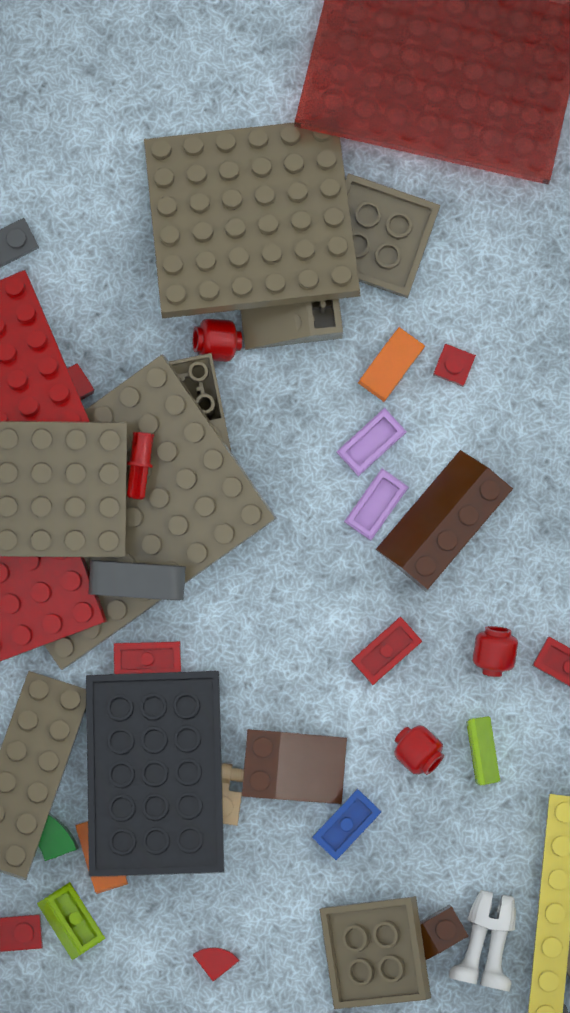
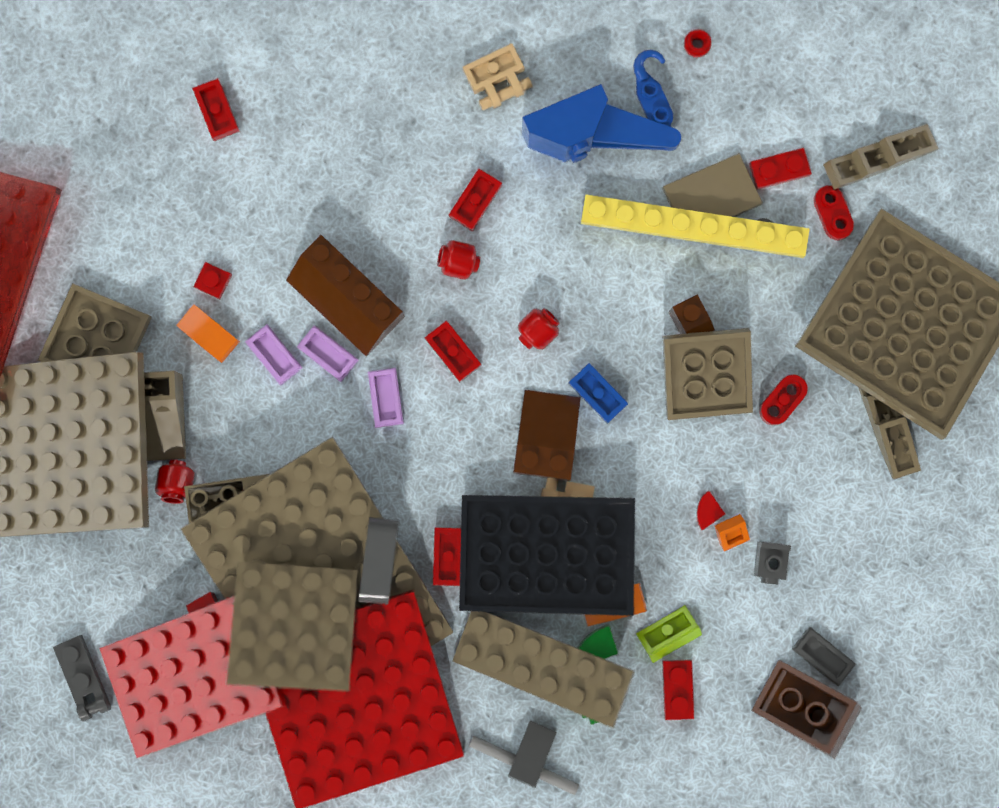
camera: 85 degrees left, 0 degrees up
(139, 463) = (276, 553): red axle -> none
(191, 989) = (732, 532): none -> orange plate
(328, 575) = (385, 398): none -> lavender tile
(479, 917) = (679, 286): white piece -> none
(483, 750) = (542, 276): lime slope -> none

